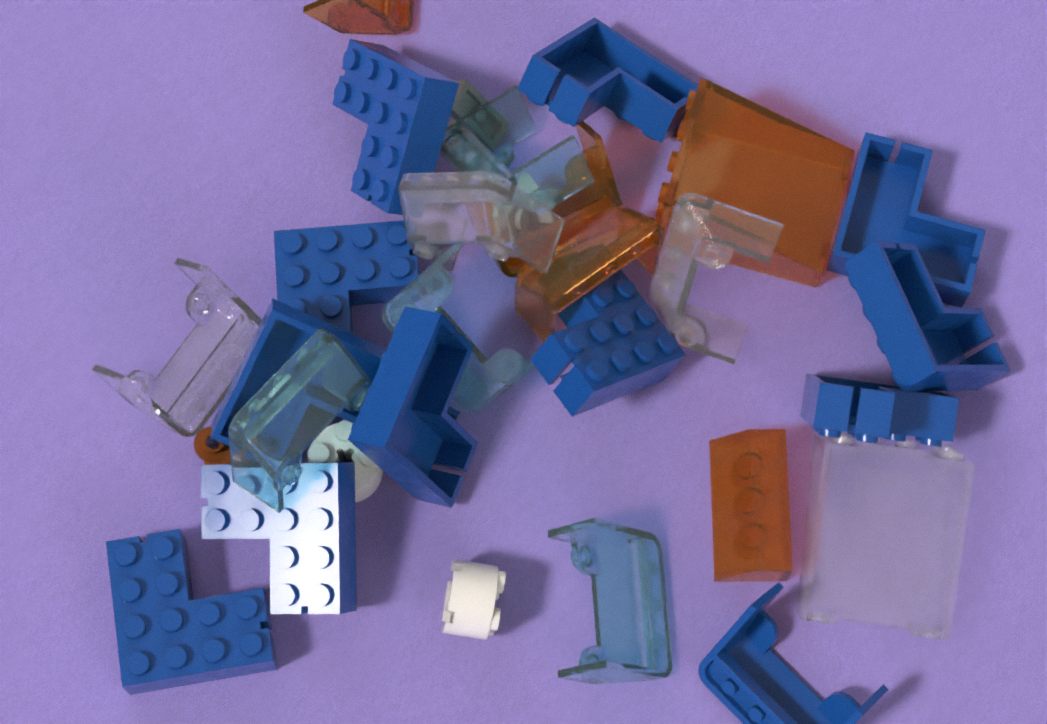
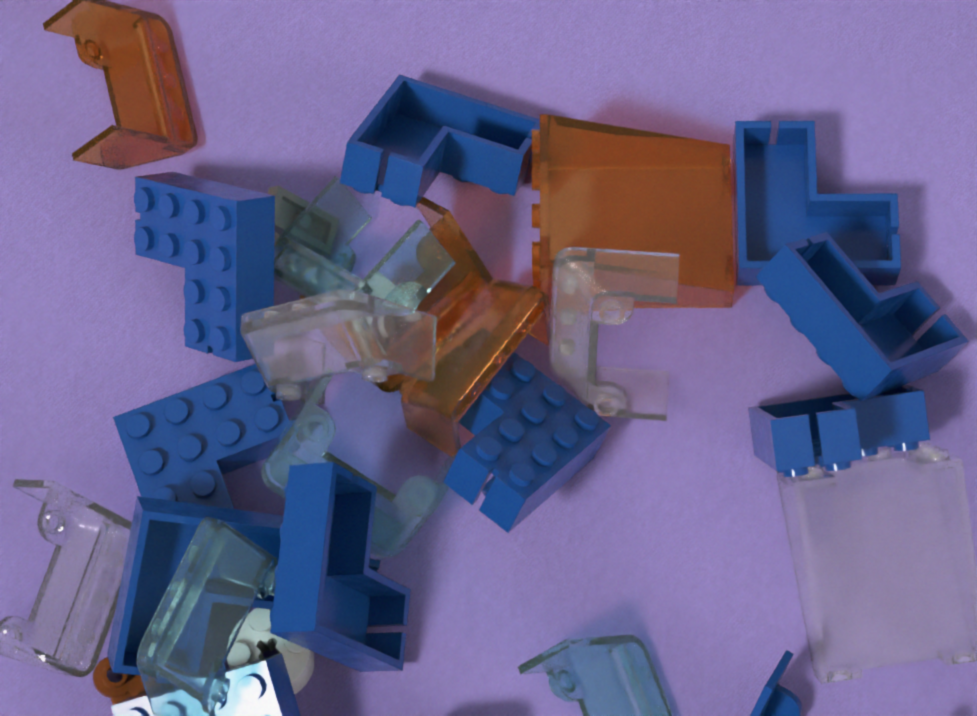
camera: 10 degrees left, 0 degrees up
(750, 506) = (730, 573): clear orange slope -> none

